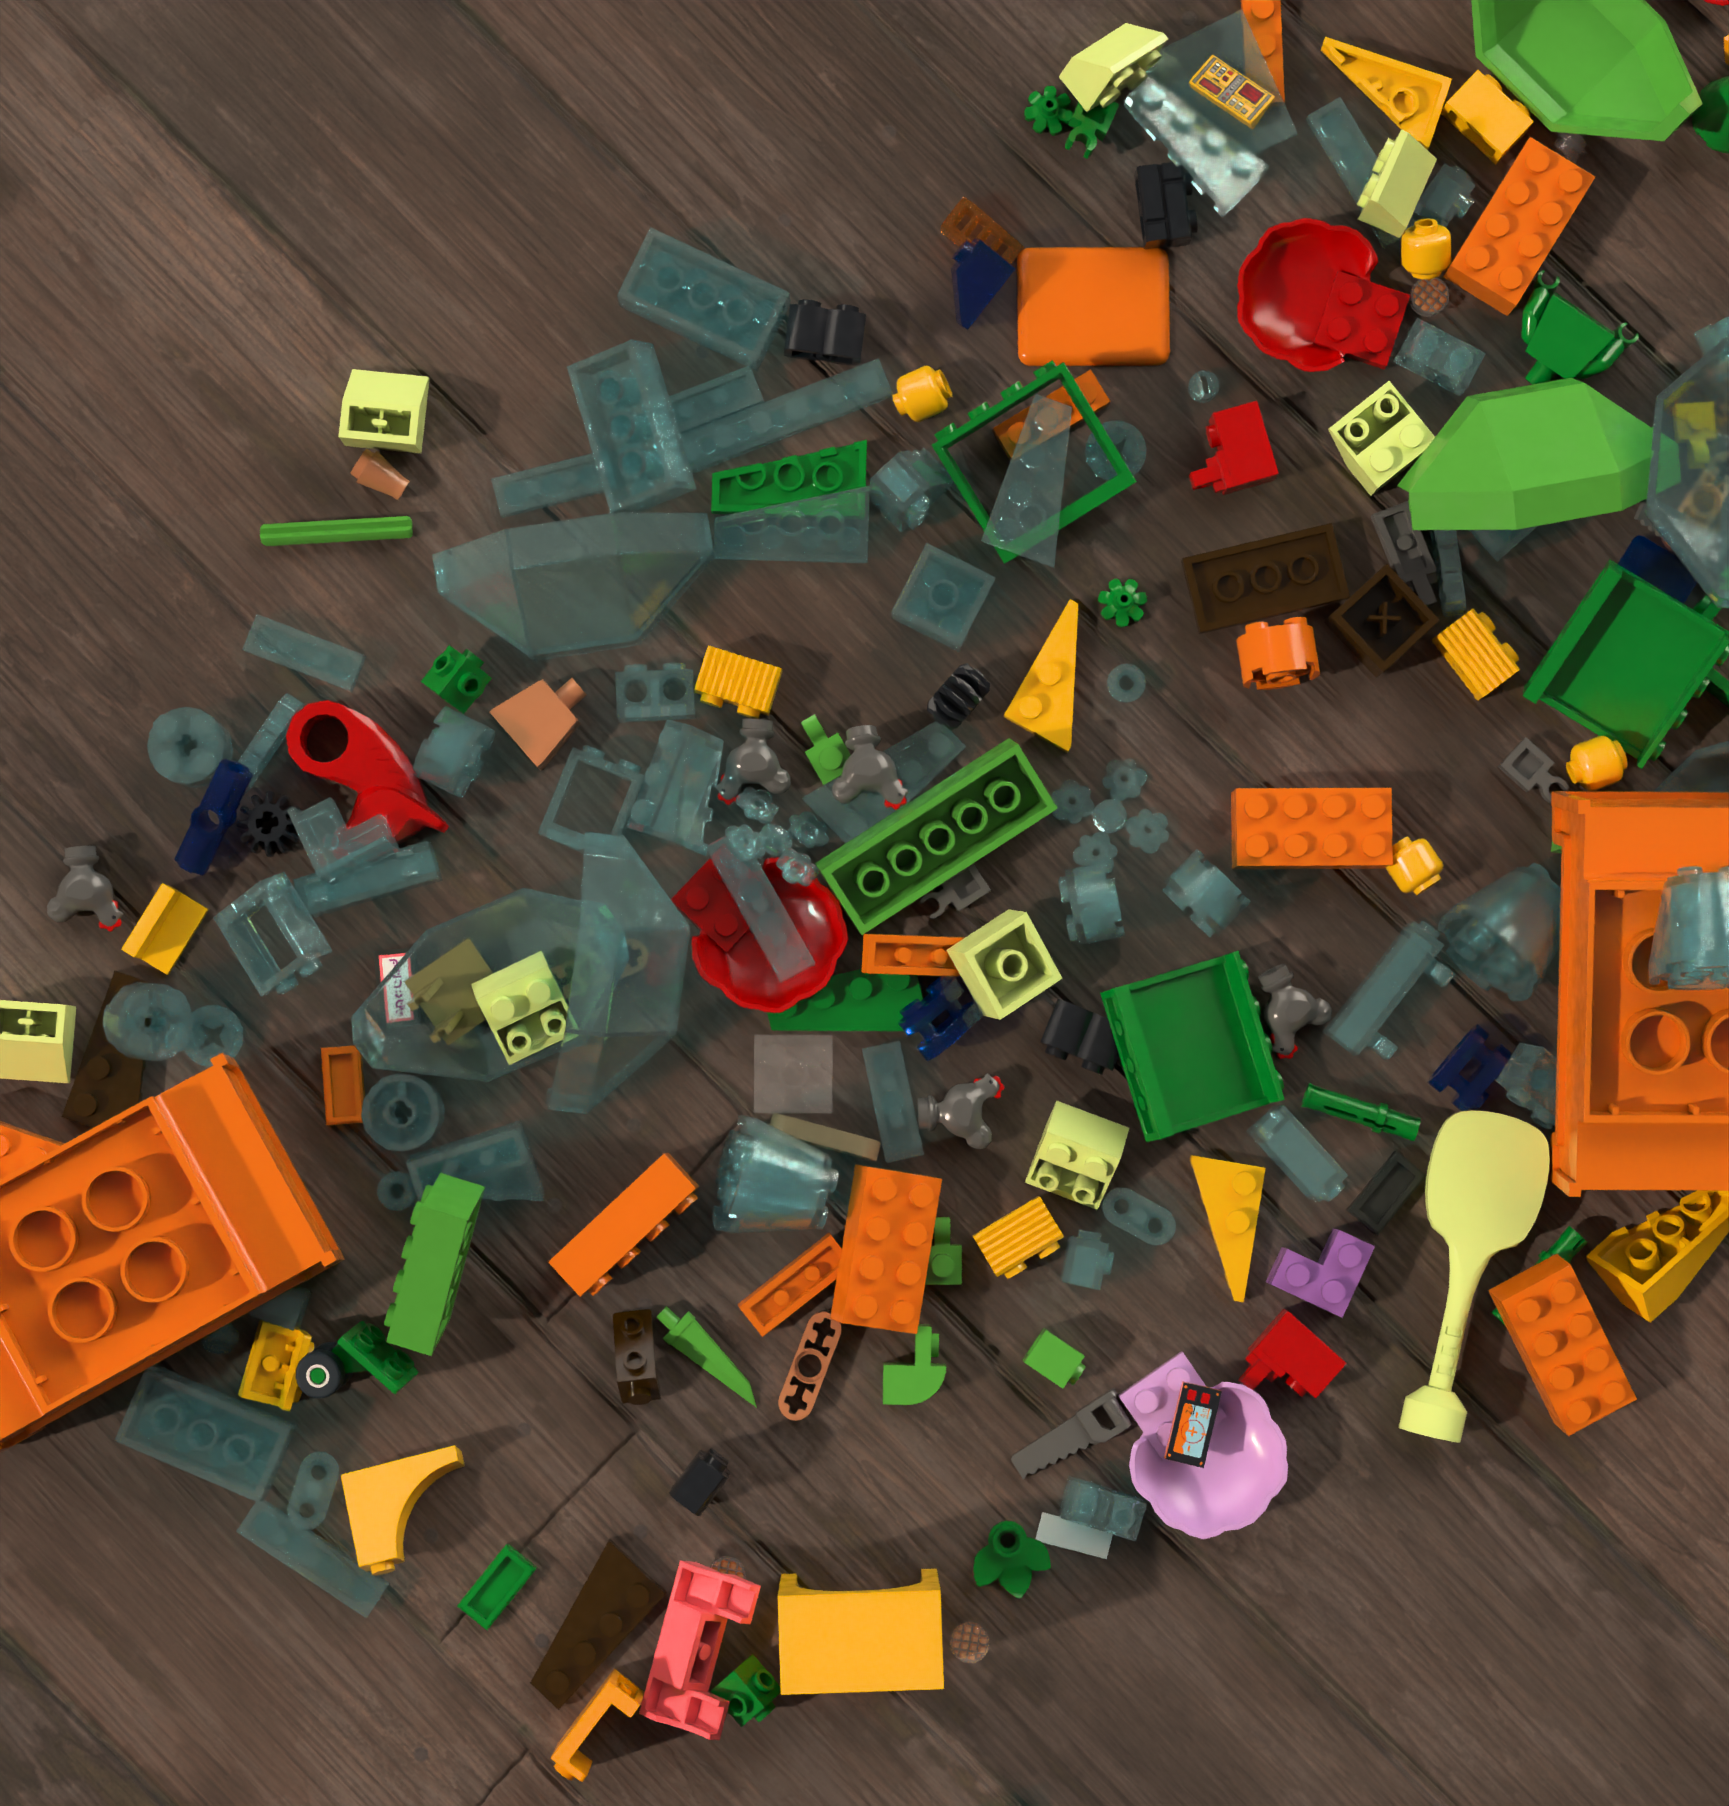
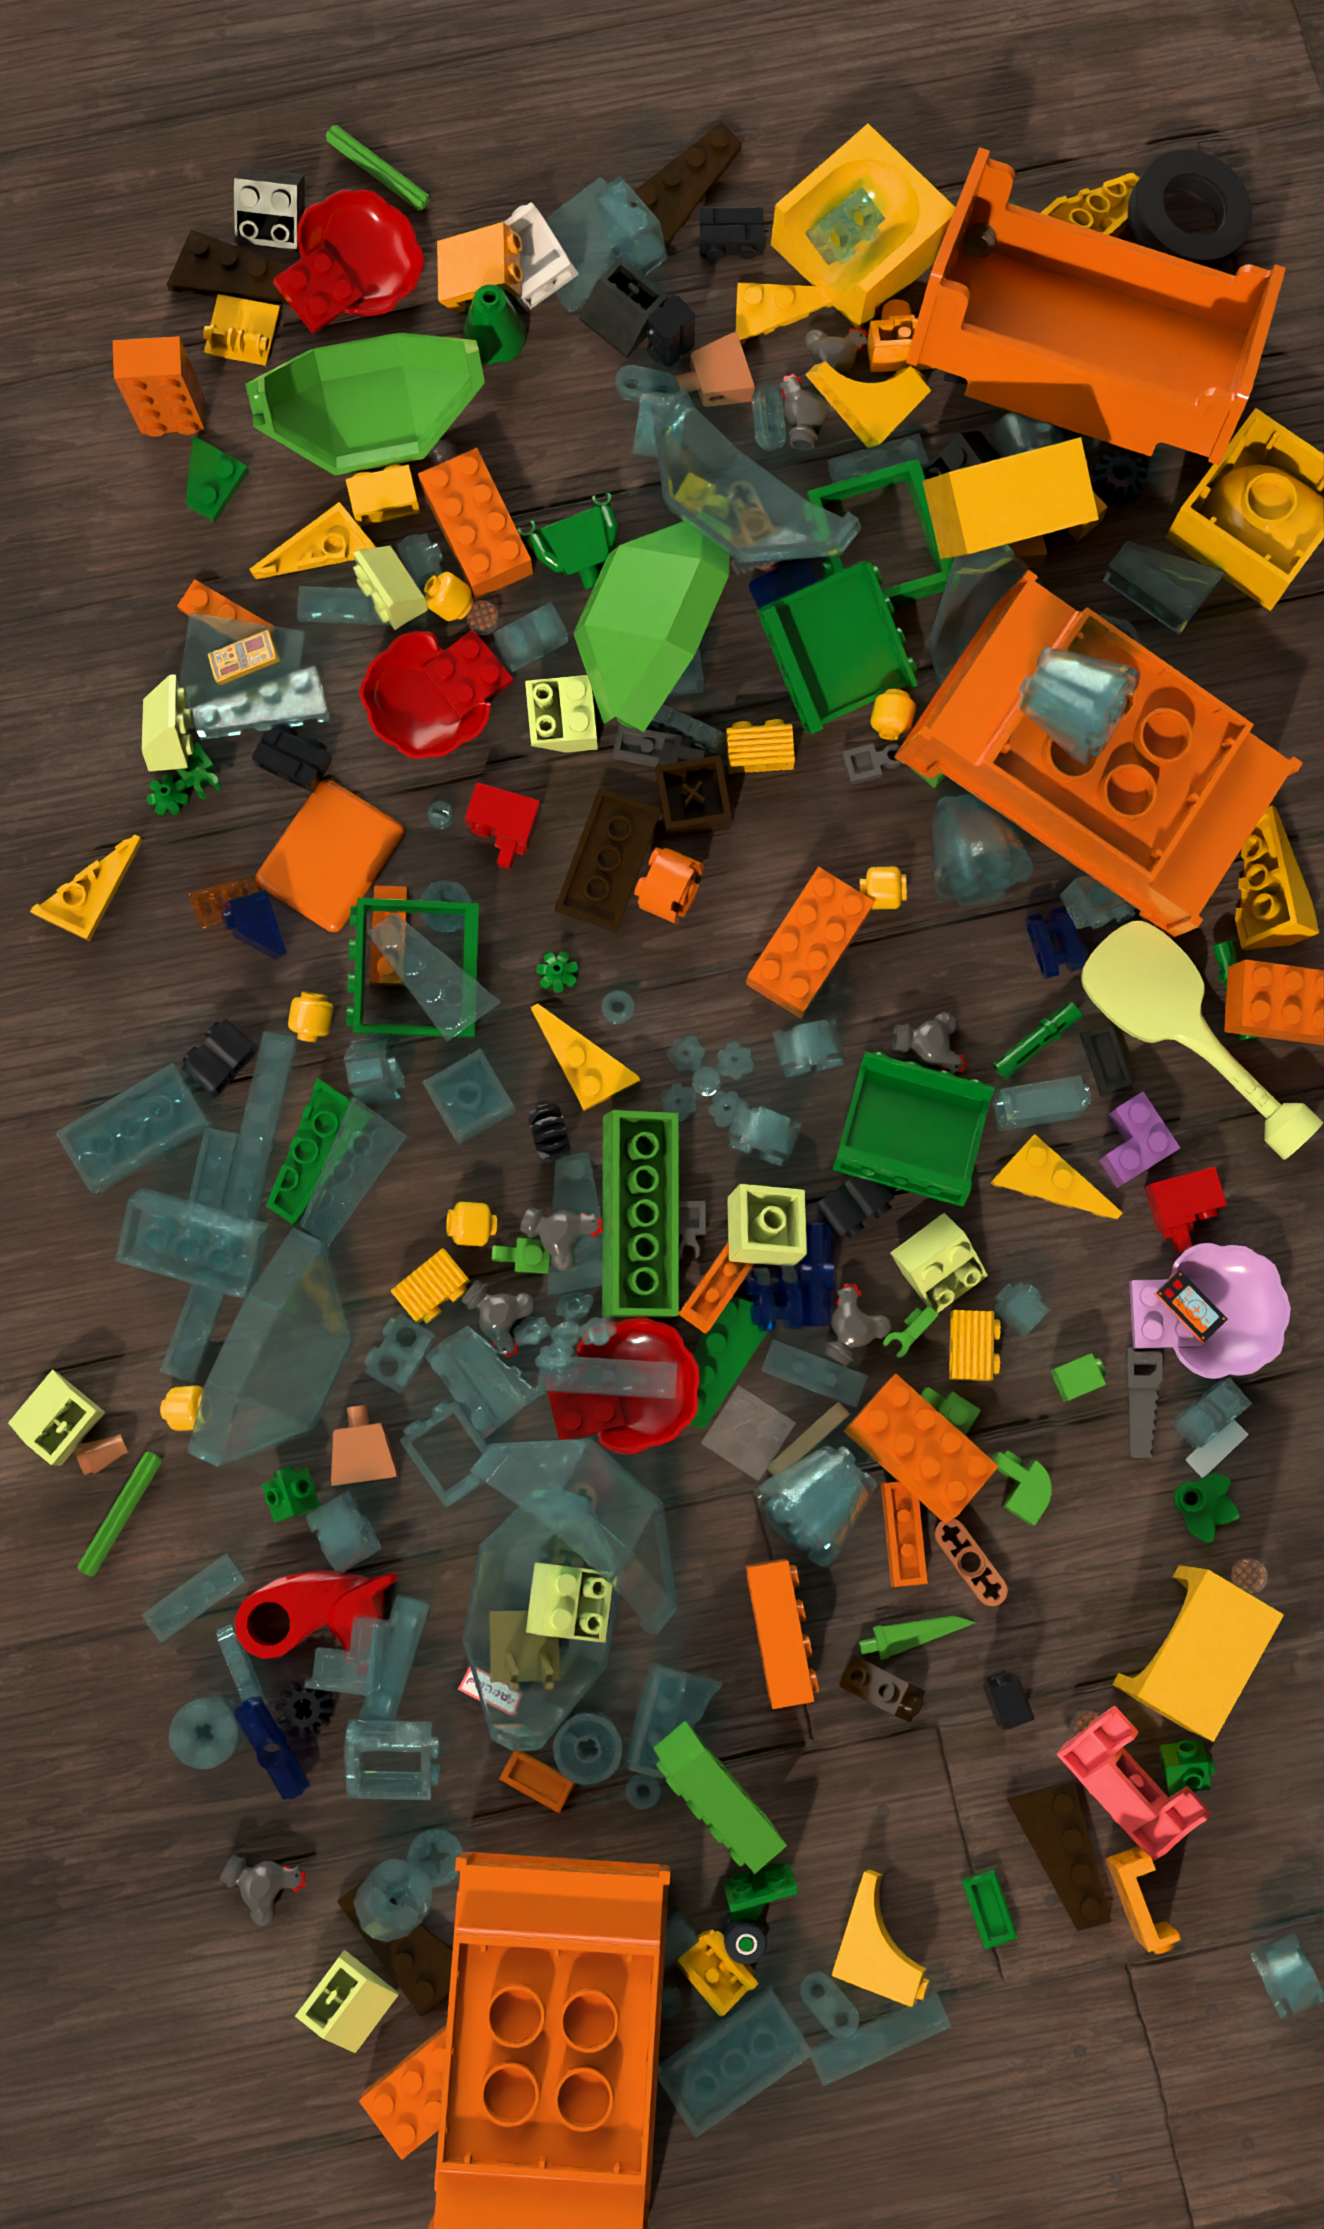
camera: 55 degrees left, 5 degrees down
(165, 928) = (331, 1841): yellow panel -> none
(471, 521) = (181, 1407): none -> yellow head
(822, 679) = (470, 1223): none -> yellow head
(892, 101) = (83, 902): none -> yellow wing
(987, 1044) = (816, 1276): none -> clear blue piece
(1005, 1169) = (917, 1323): none -> bright green plate
(1138, 1215) = (1011, 1248): clear light blue plate -> none
(1385, 988) = (959, 966): clear light blue brick -> none

